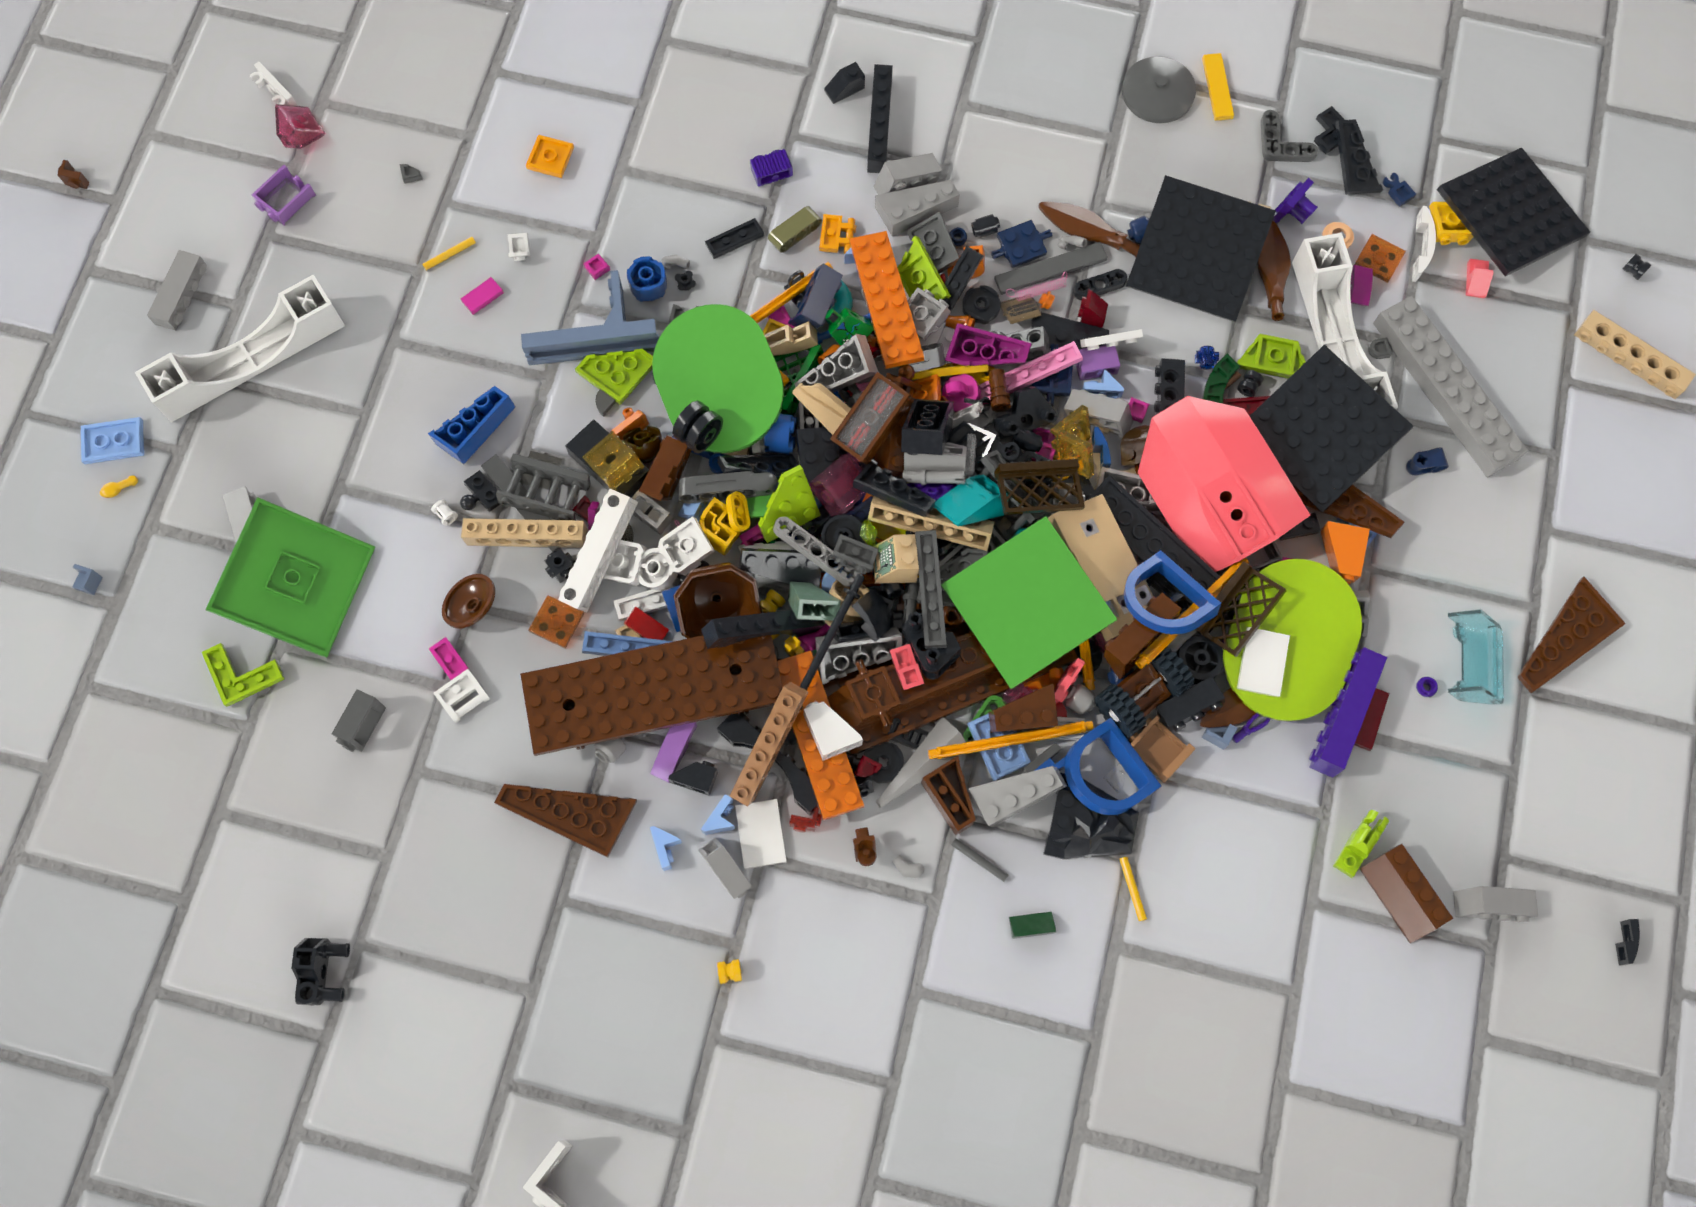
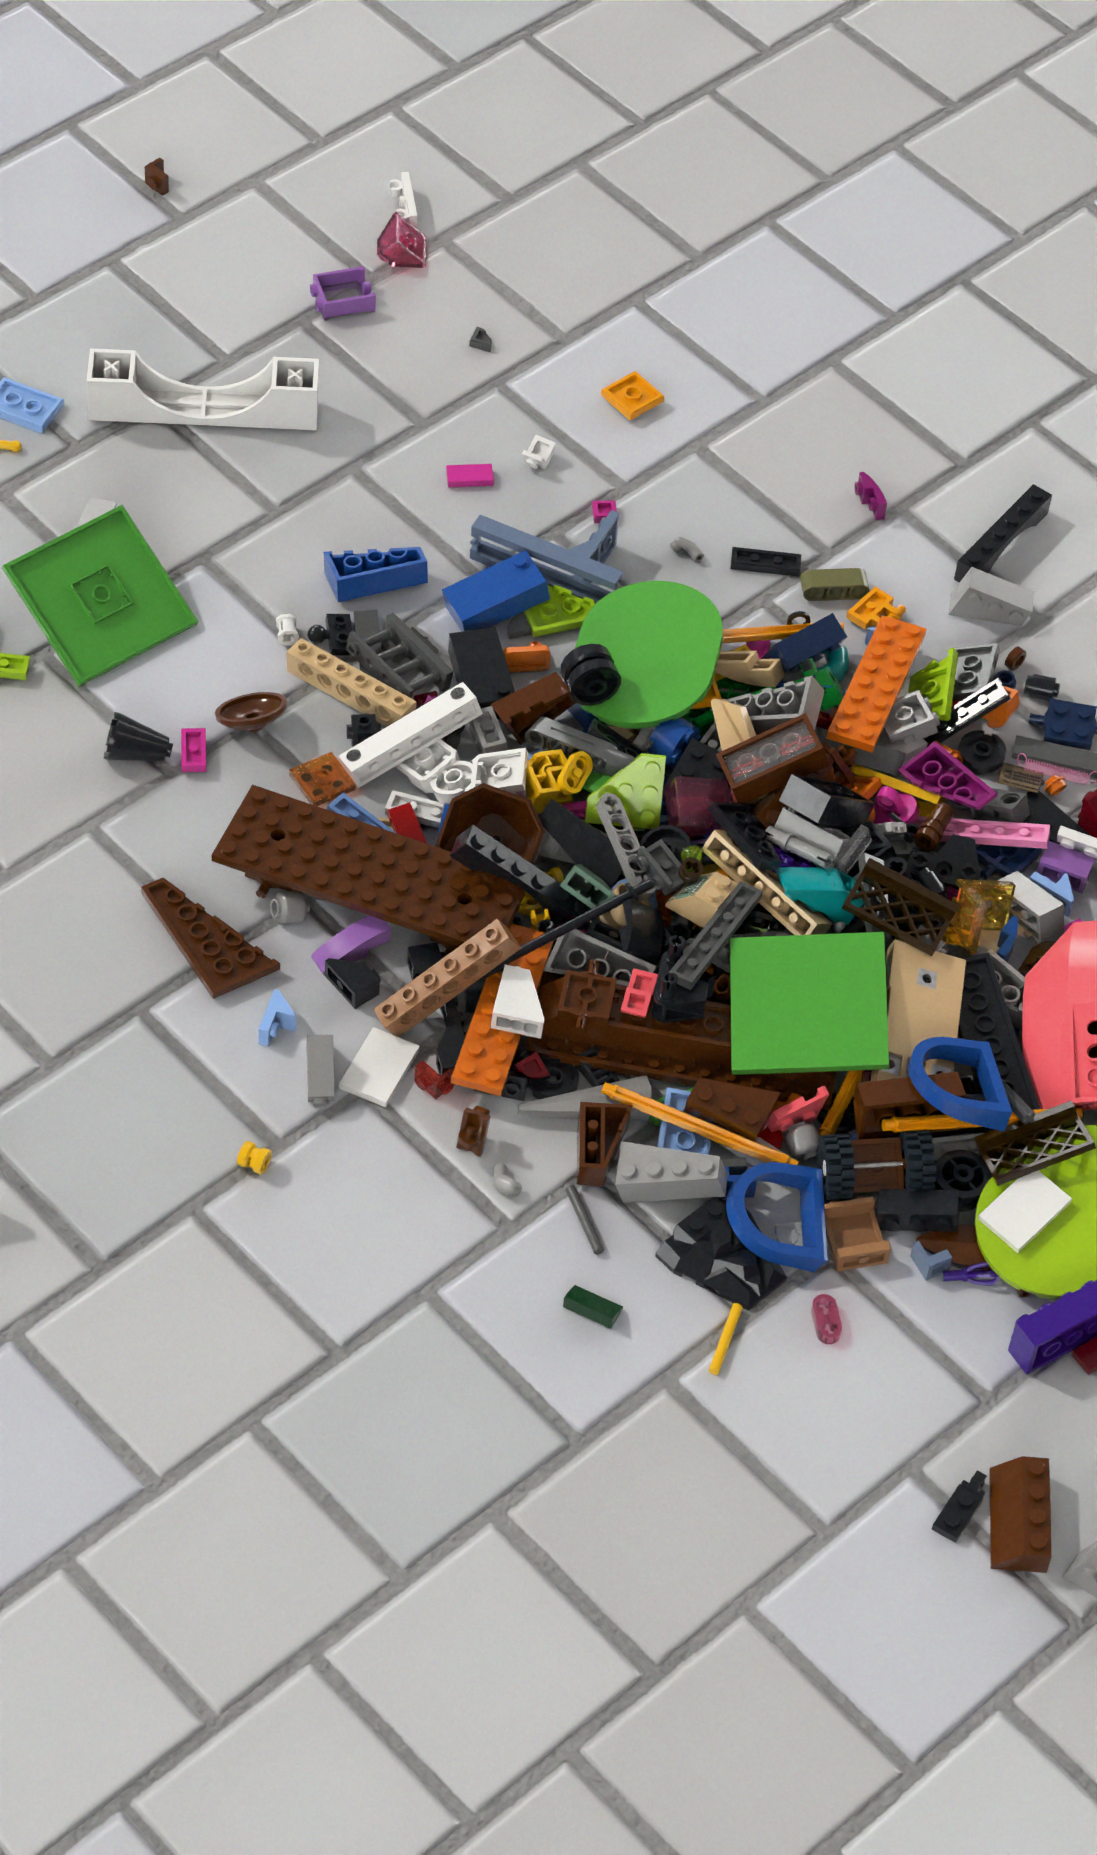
camera: 30 degrees right, 20 degrees down
(177, 290) = (180, 316): light grey brick -> none
(358, 721) = (53, 737): dark grey window -> none
(403, 683) = (135, 742): none -> black cone
(449, 253) = (465, 424): yellow bar -> none
(457, 690) = (181, 779): white plate -> none
(573, 389) = (496, 593): none -> blue brick
(620, 468) = (485, 665): clear yellow bracket -> none
(644, 442) = (525, 672): dark brown cylinder -> none
(647, 279) = (645, 544): blue brick -> none
(690, 283) = (684, 569): black plate -> none
(716, 822) = (347, 1025): light blue slope -> none
(767, 137) = (871, 494): none -> magenta slope
(771, 167) = (853, 520): dark purple brick -> none
(803, 646) = (547, 925): none -> black hand
(845, 83) = (992, 489): black slope -> none
(879, 539) = (690, 877): none -> dark brown bush
(911, 206) = (970, 624): light grey wedge -> none
(953, 213) = (1015, 658): none -> reddish brown tile
(1181, 830) = (832, 1318): none -> clear pink beam
(1213, 588) = (1018, 1106): none -> dark grey axle
(1360, 844) = (1007, 1441): lime plate -> none
(1364, 912) = (960, 1508): none -> black hinge

